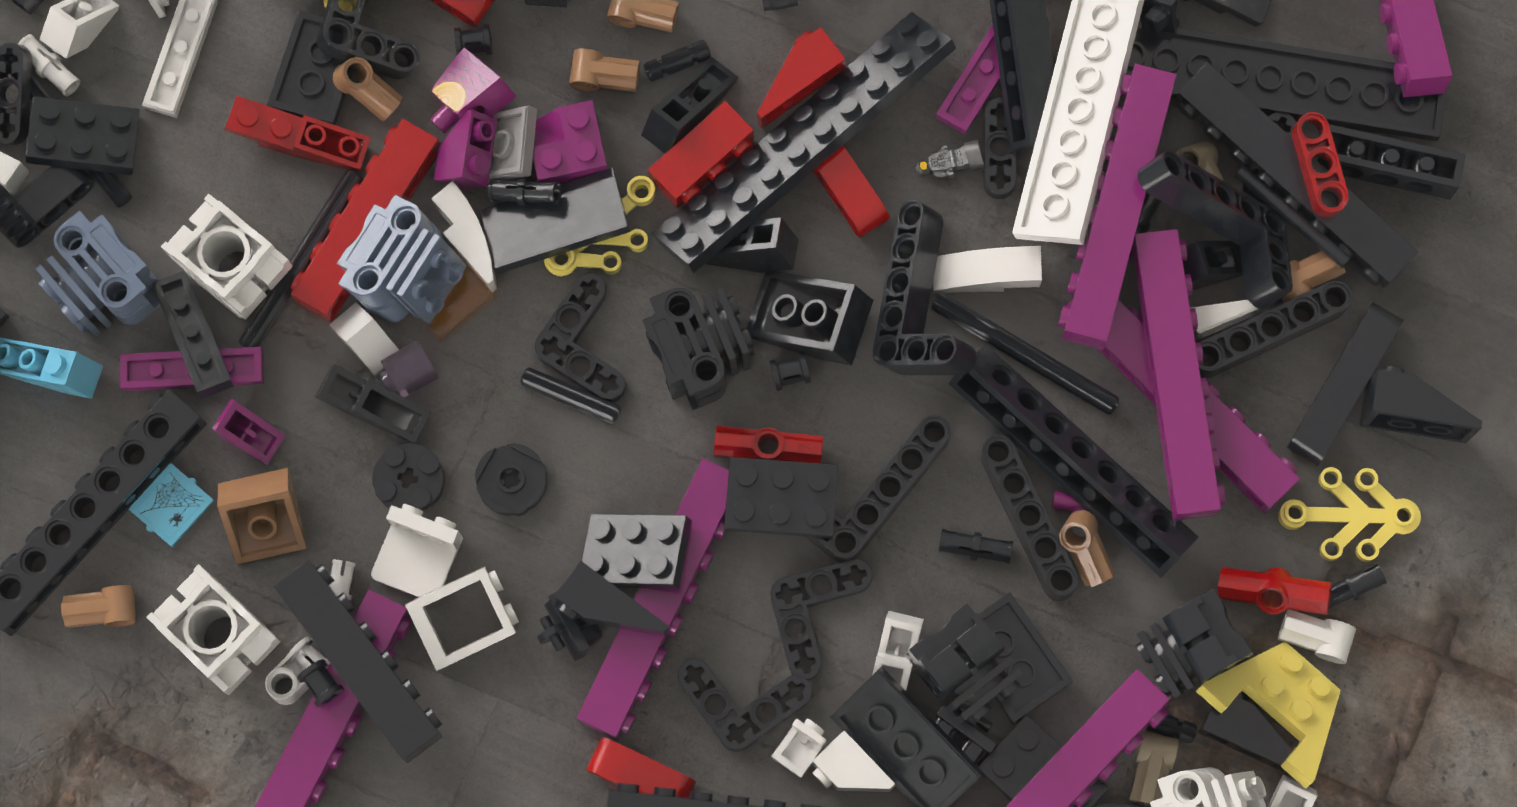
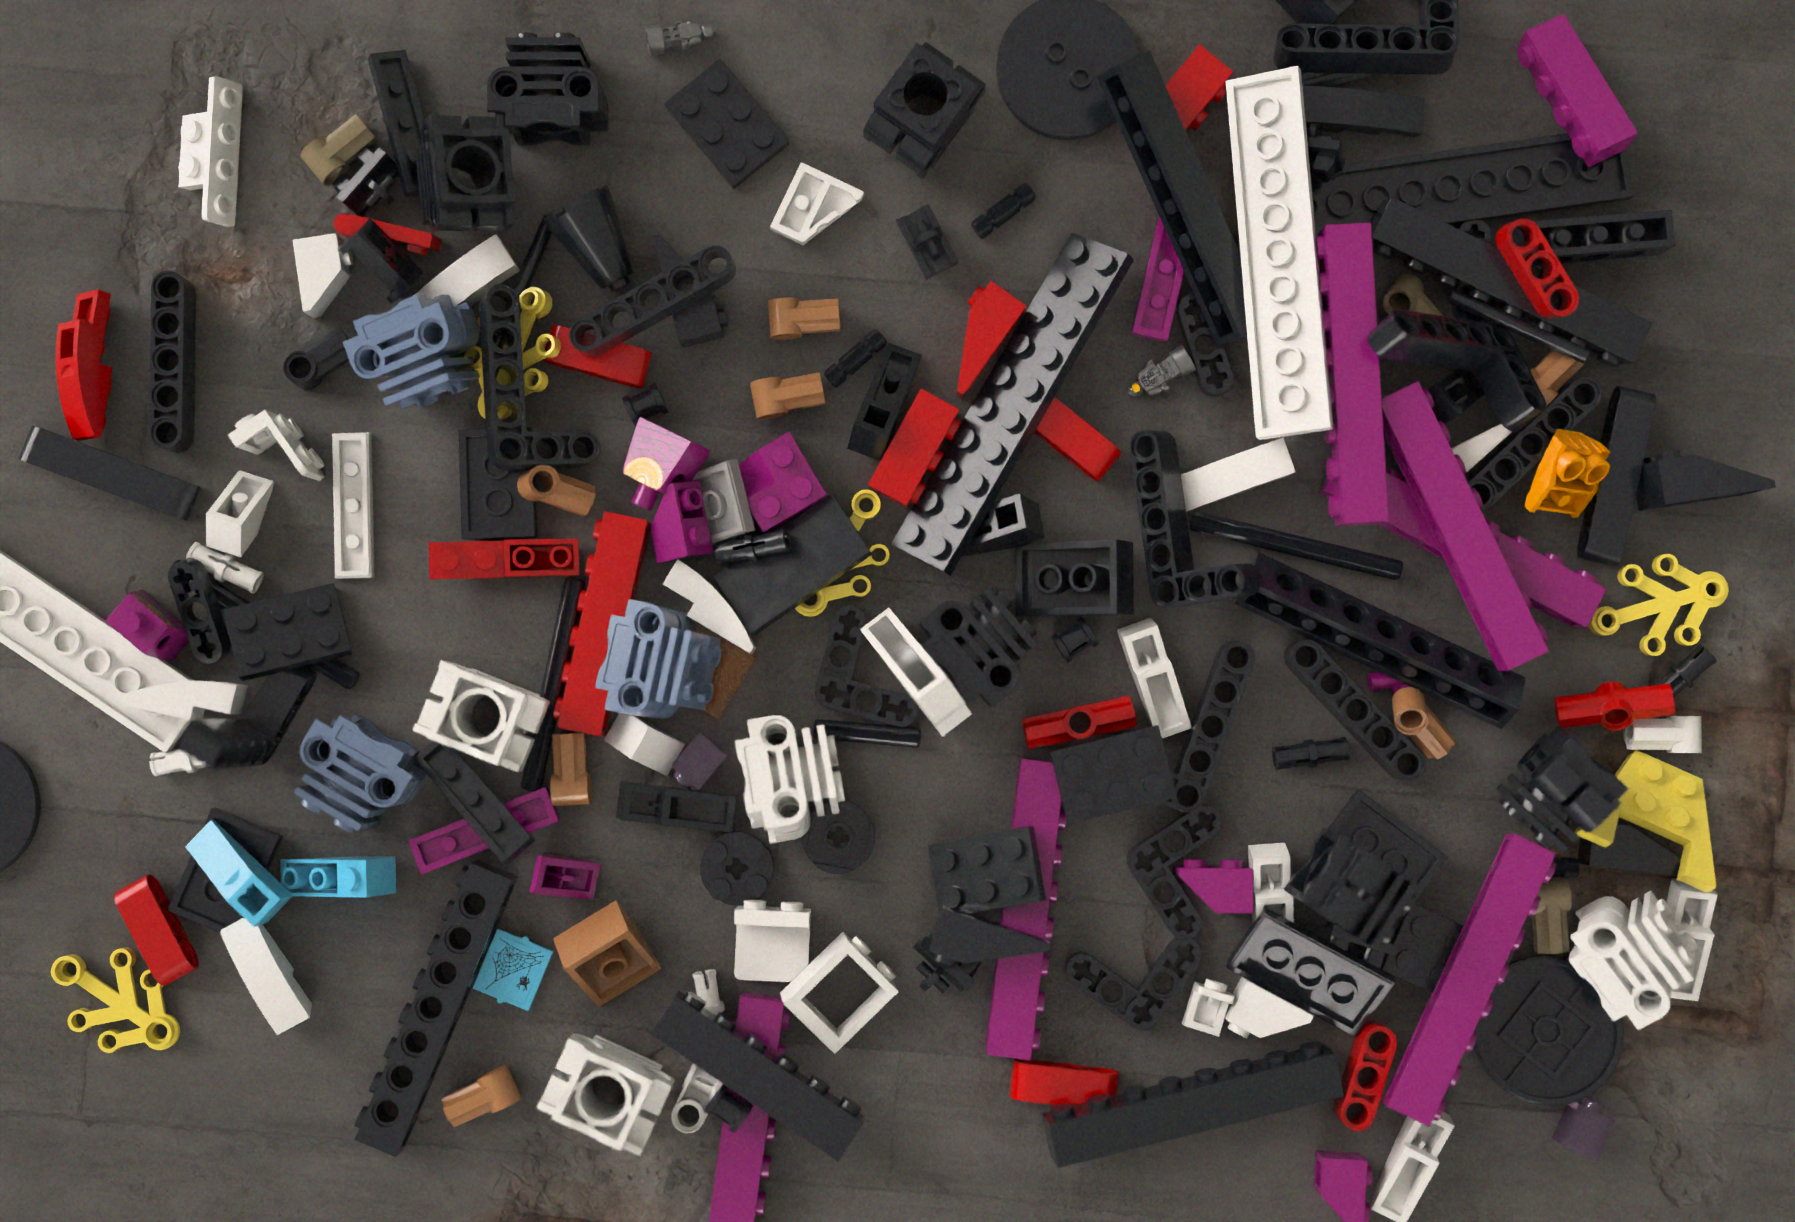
camera: 25 degrees left, 10 degrees up
(287, 347) = (570, 781): none -> medium nougat piece
(480, 402) = (787, 776): none -> white piece
(633, 348) = (916, 672): none -> white brick
(848, 639) = (1221, 887): none -> magenta slope
(852, 430) = (1154, 677): none -> white slope
(1296, 363) = (1568, 474): none -> light orange slope

